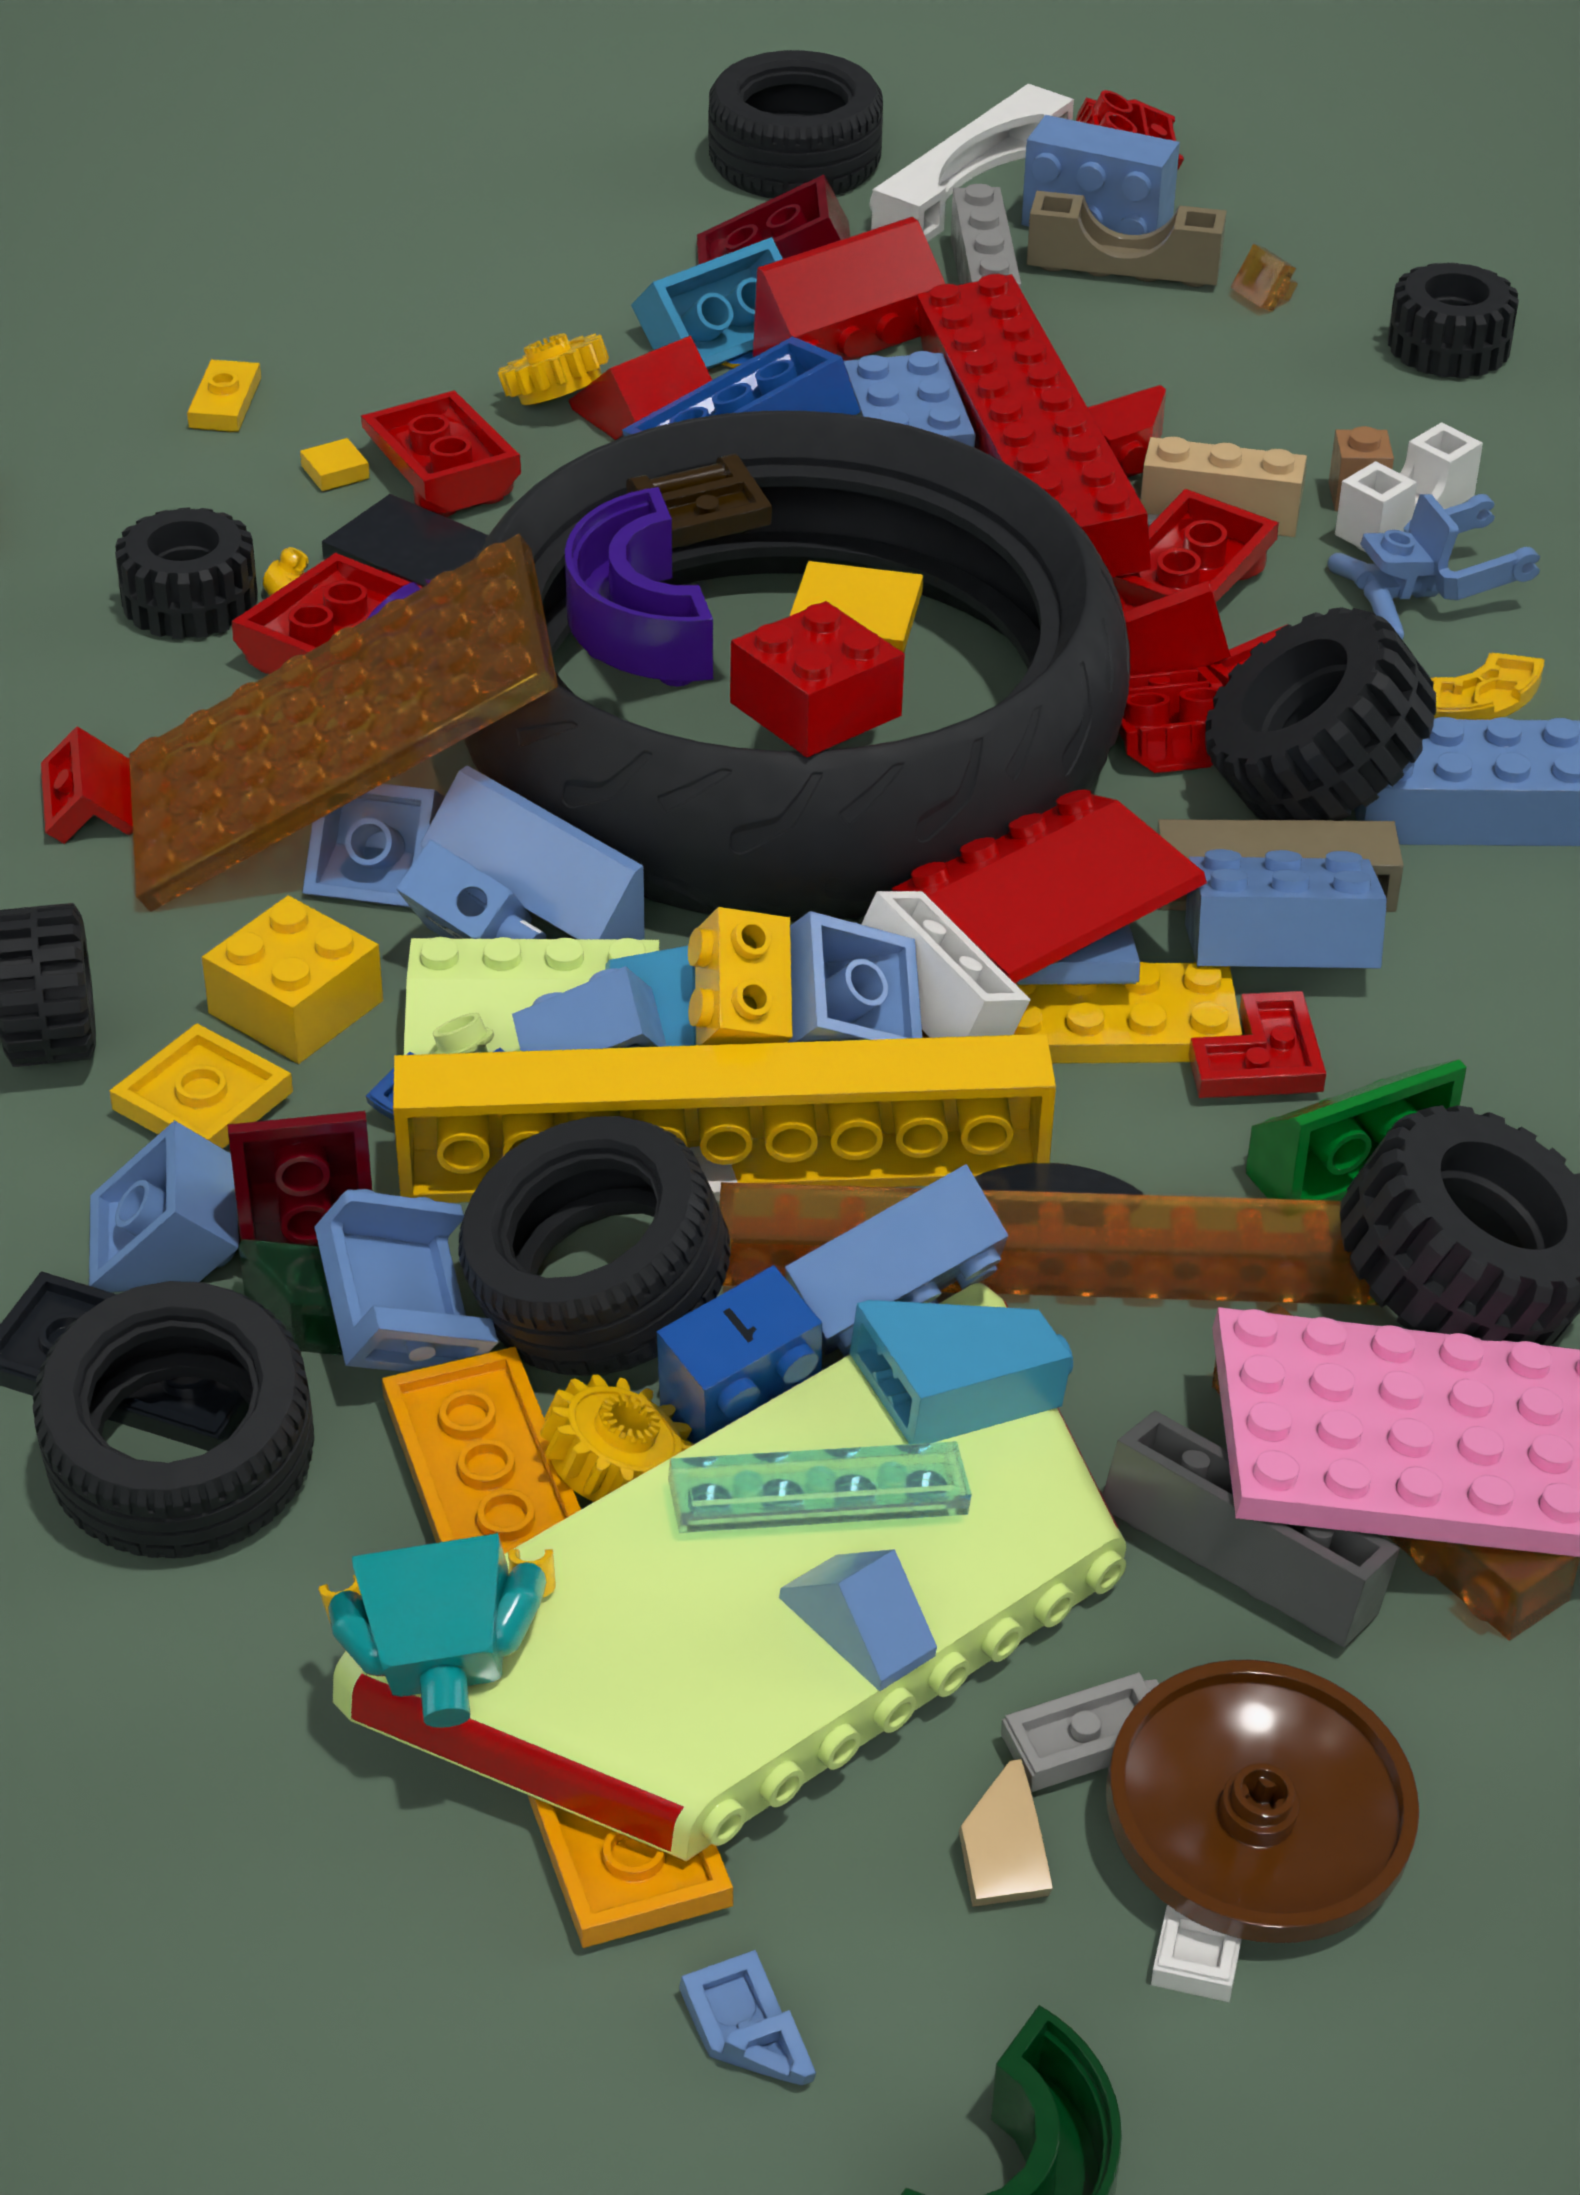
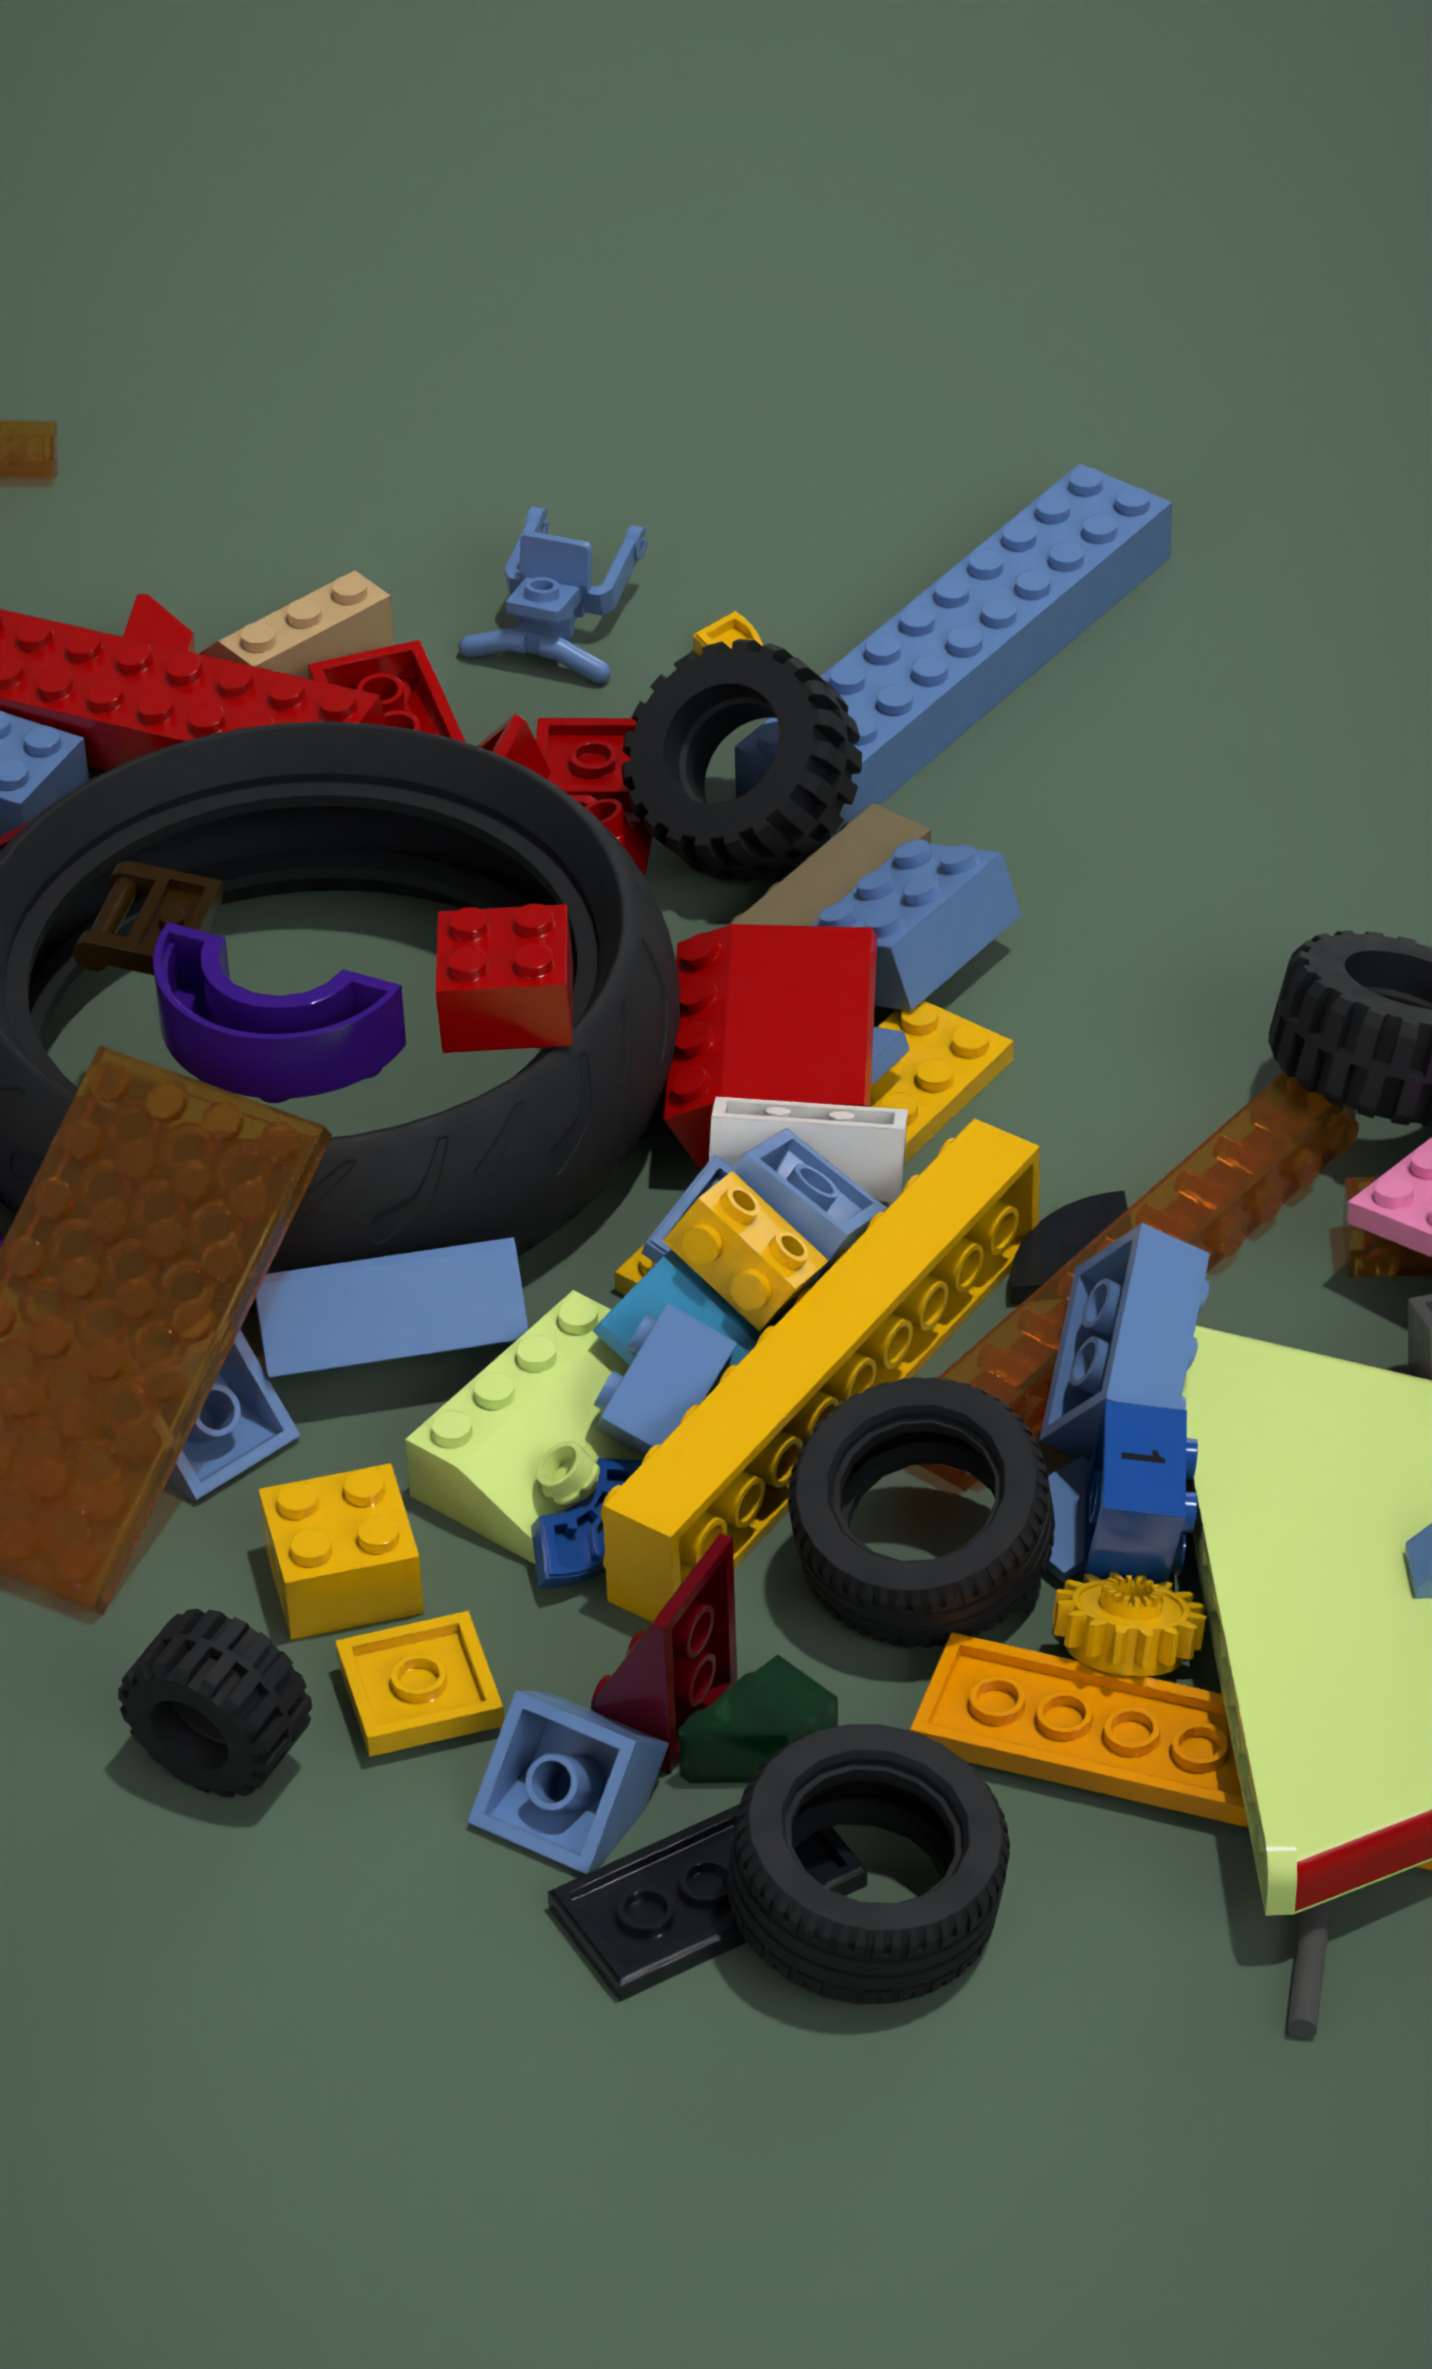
camera: 50 degrees left, 0 degrees up
(339, 1780) = (1309, 1971): none -> dark grey bar
(397, 1282) = (836, 1662): medium blue panel -> none
(438, 1617) = (1310, 1780): teal torso -> none
(462, 900) = (387, 1387): medium blue torso -> none
(818, 1486) = (1335, 1512): clear light blue plate -> none
(873, 597) = (383, 916): yellow tile -> none
(958, 1365) = (1270, 1374): dark azure slope -> none
(1271, 1058) = (1043, 1032): red plate -> none
(1326, 1144) = (1191, 1036): green slope -> none
(1355, 451) = (383, 551): medium nougat brick -> none
(1382, 500) = (449, 545): white arch -> none
(1452, 320) = (239, 381): black tyre -> none

